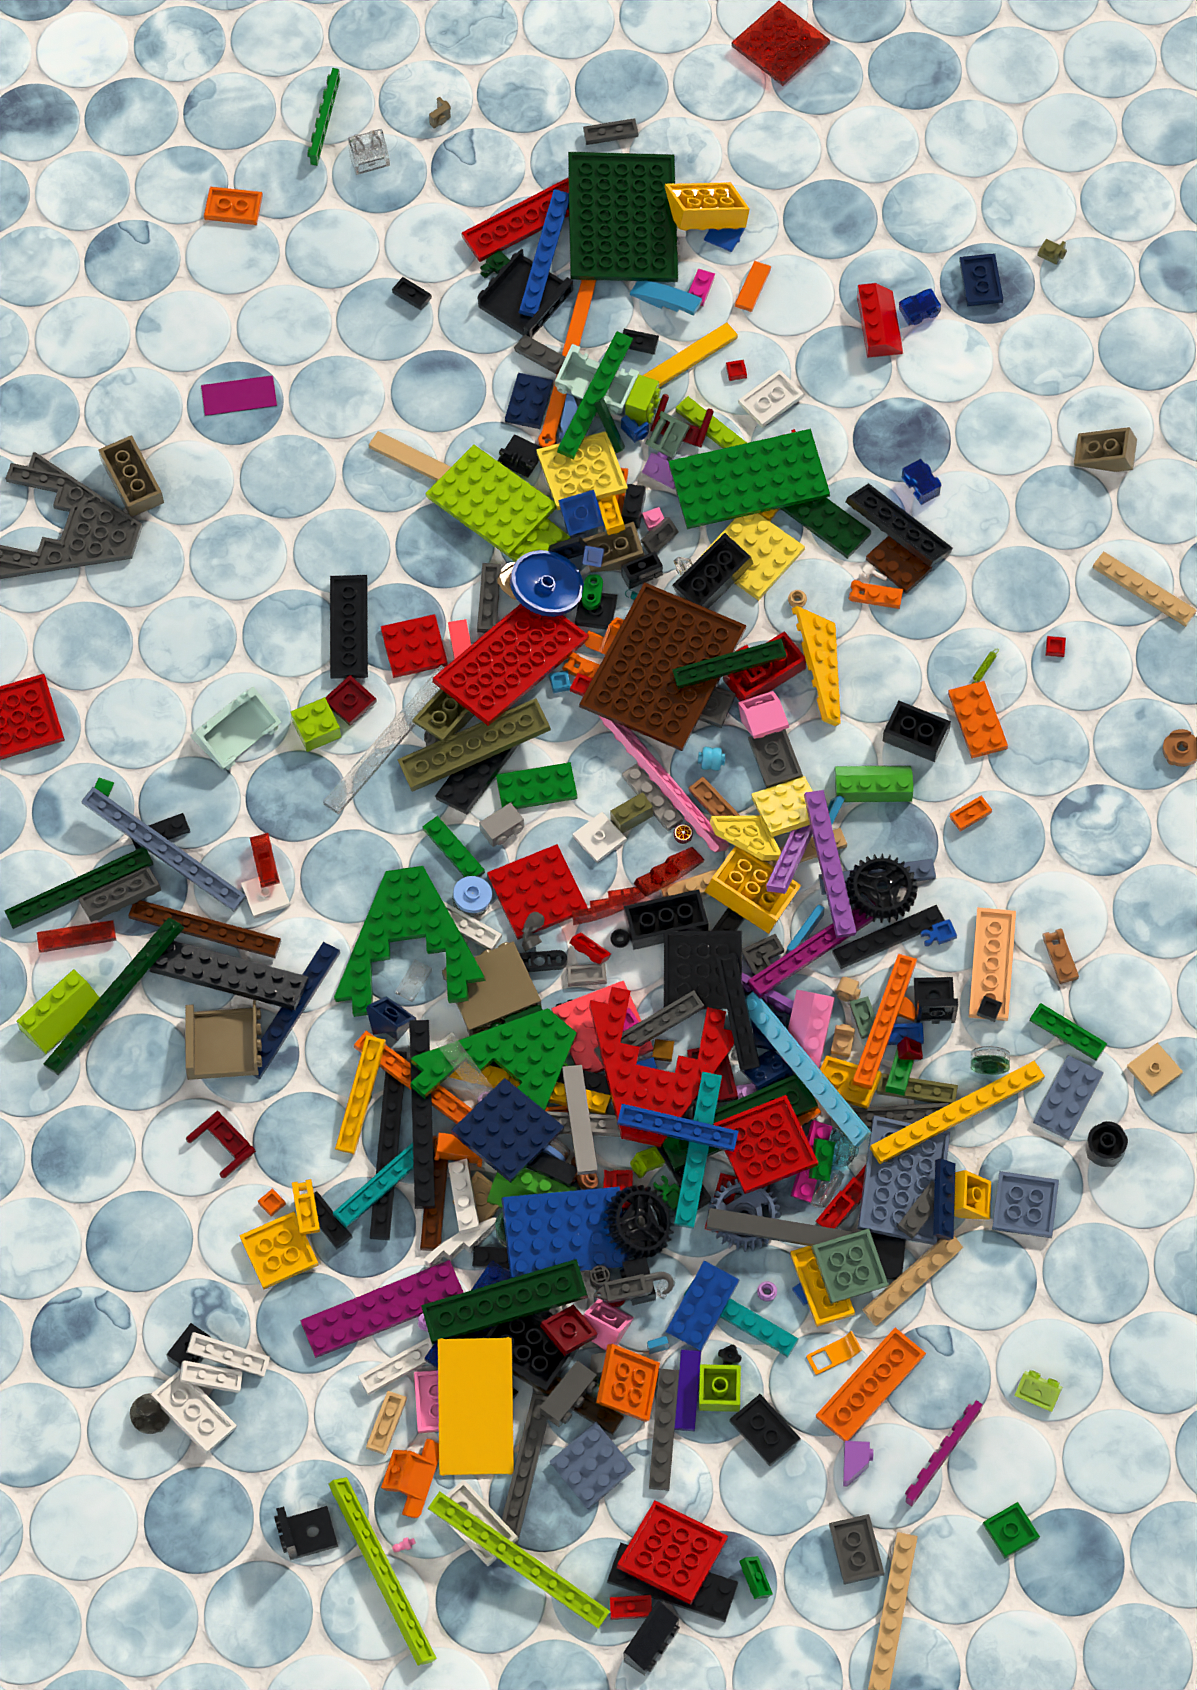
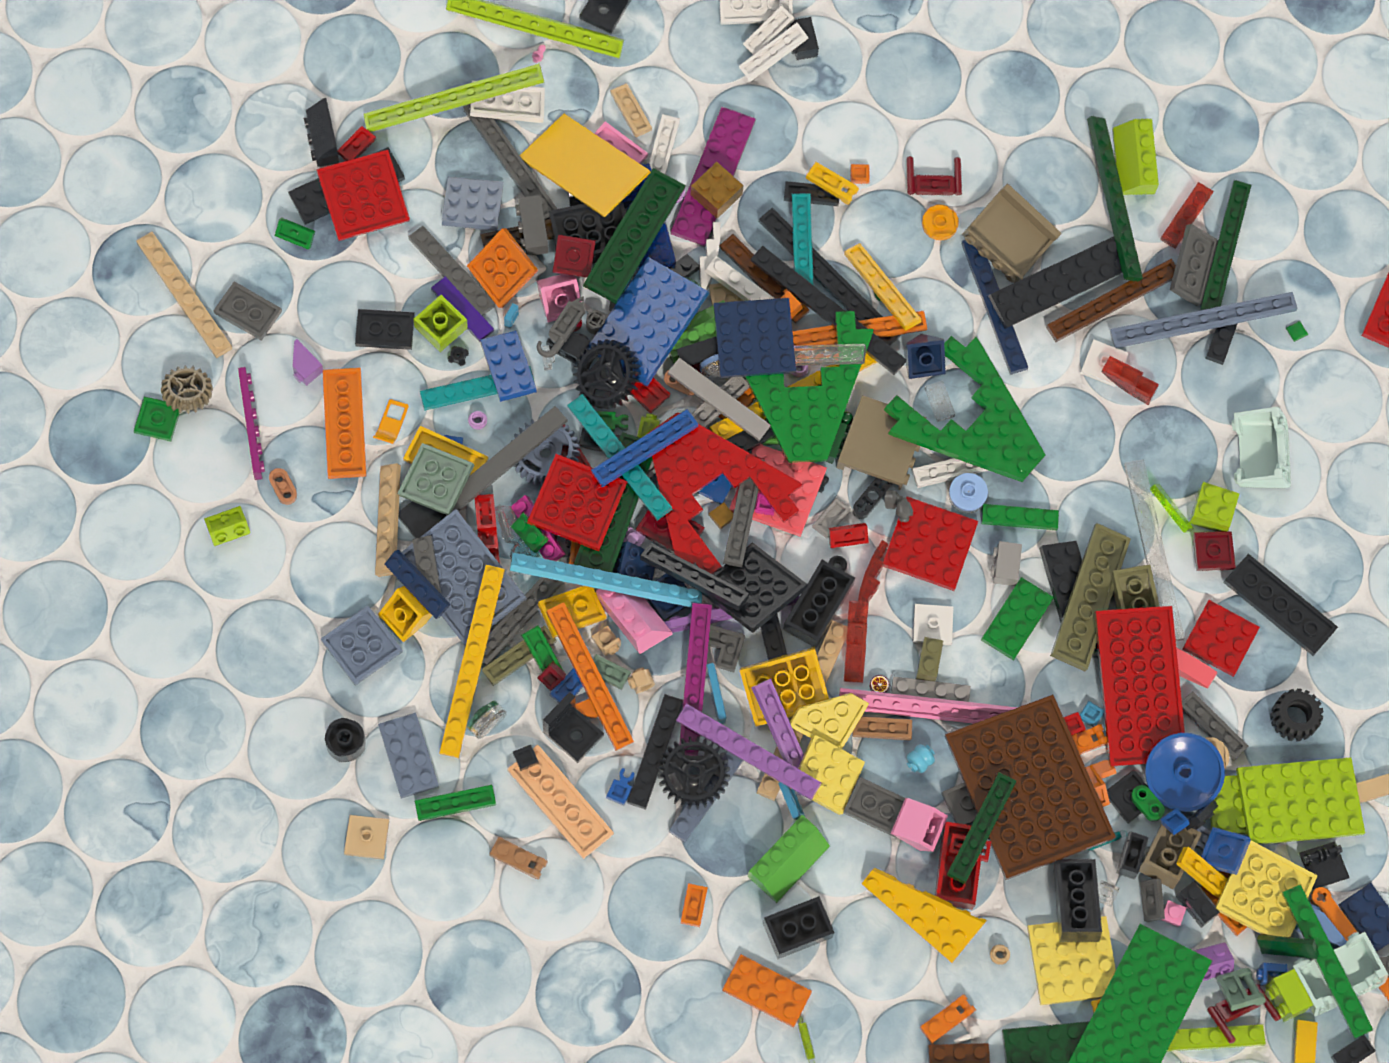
camera: 125 degrees right, 5 degrees up
(257, 1108) = (940, 222): none -> light orange tile
(278, 1250) = (819, 143): yellow plate -> none
(344, 752) = (1171, 508): none -> clear neon green tile
(399, 1282) = (716, 190): none -> pearl gold brick
(412, 1476) = (578, 94): orange plate -> none
(427, 537) = (1307, 704): none -> black tyre
(965, 1380) = (283, 487): none -> nougat plate
(977, 1523) = (188, 394): none -> dark tan gear

